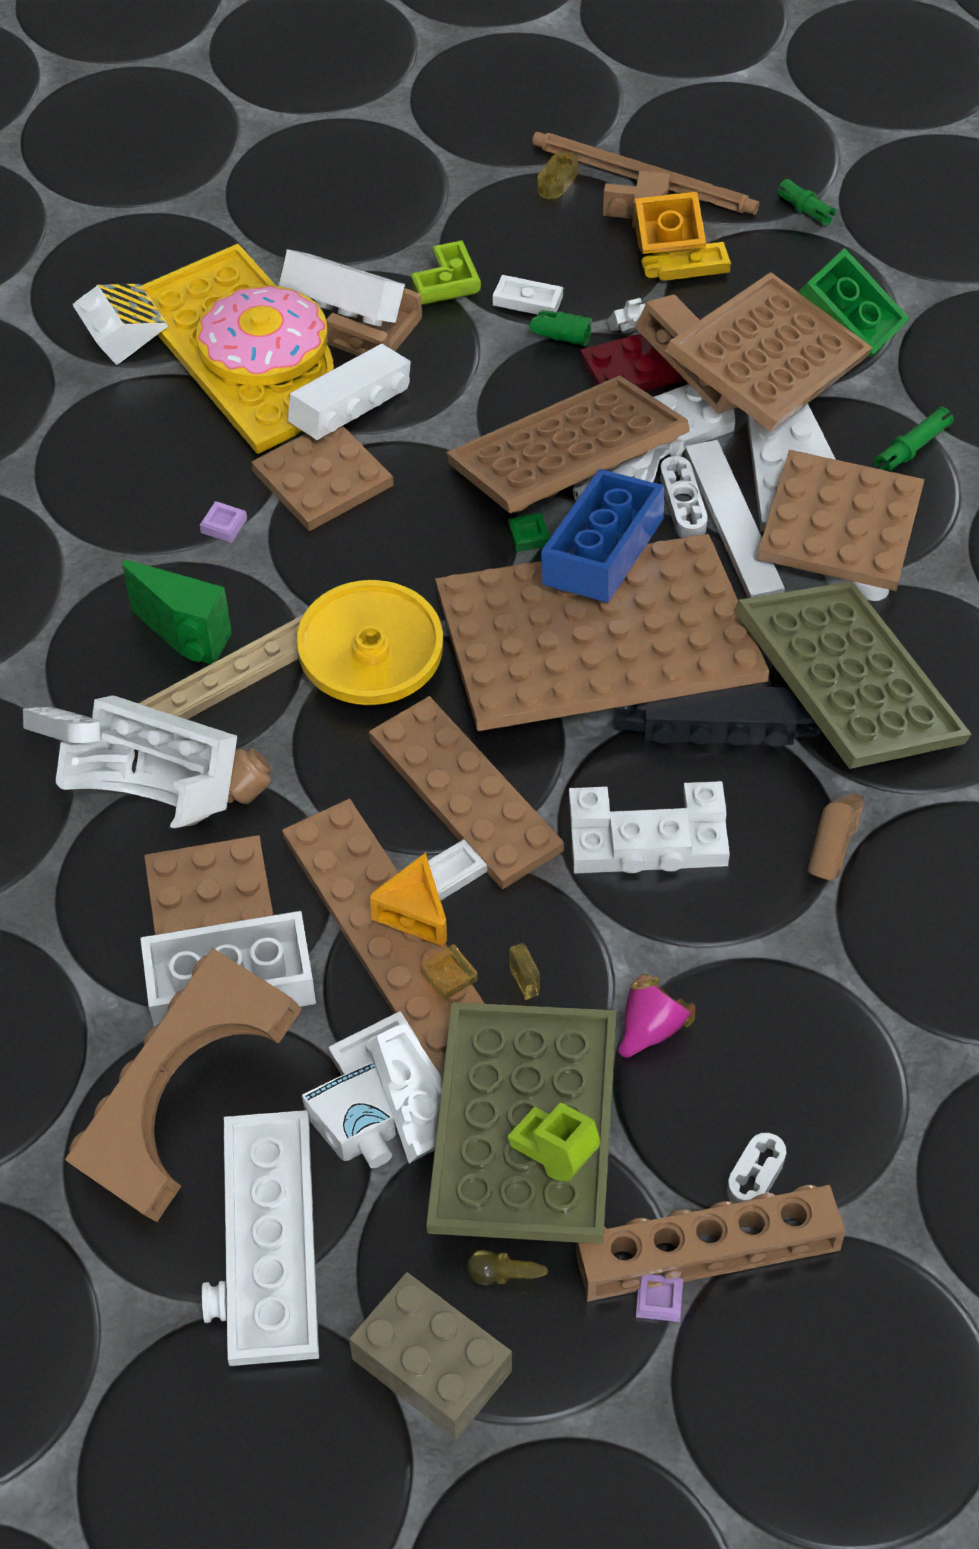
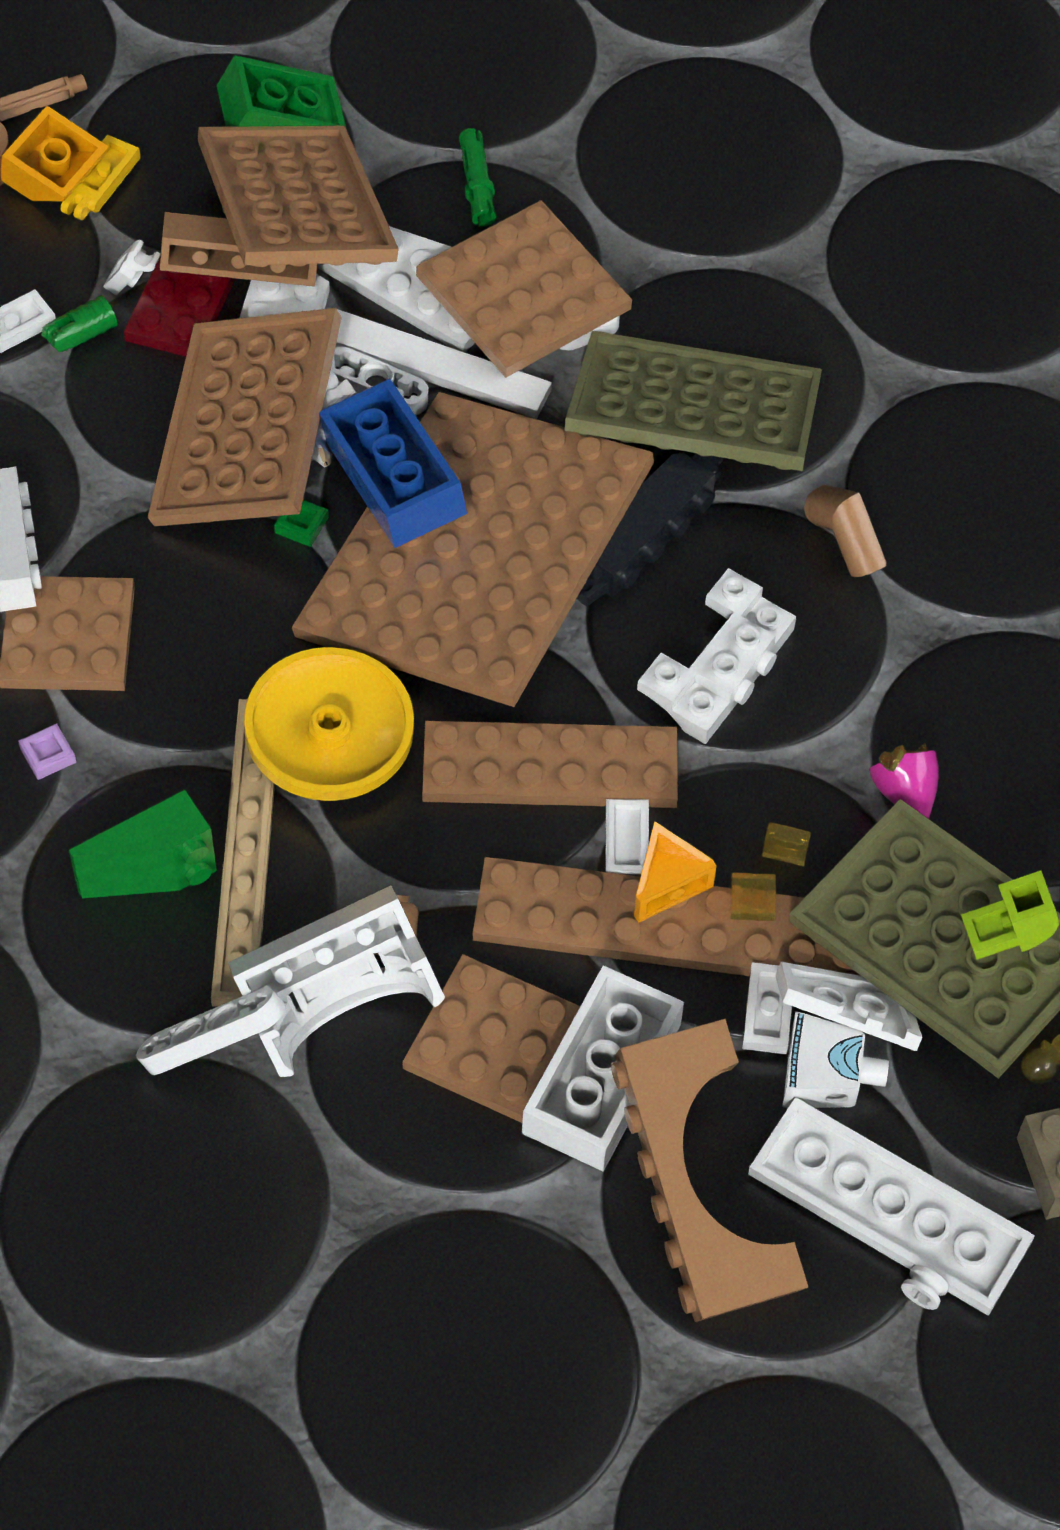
camera: 55 degrees left, 5 degrees up
(806, 202) = (116, 42): green pin -> none

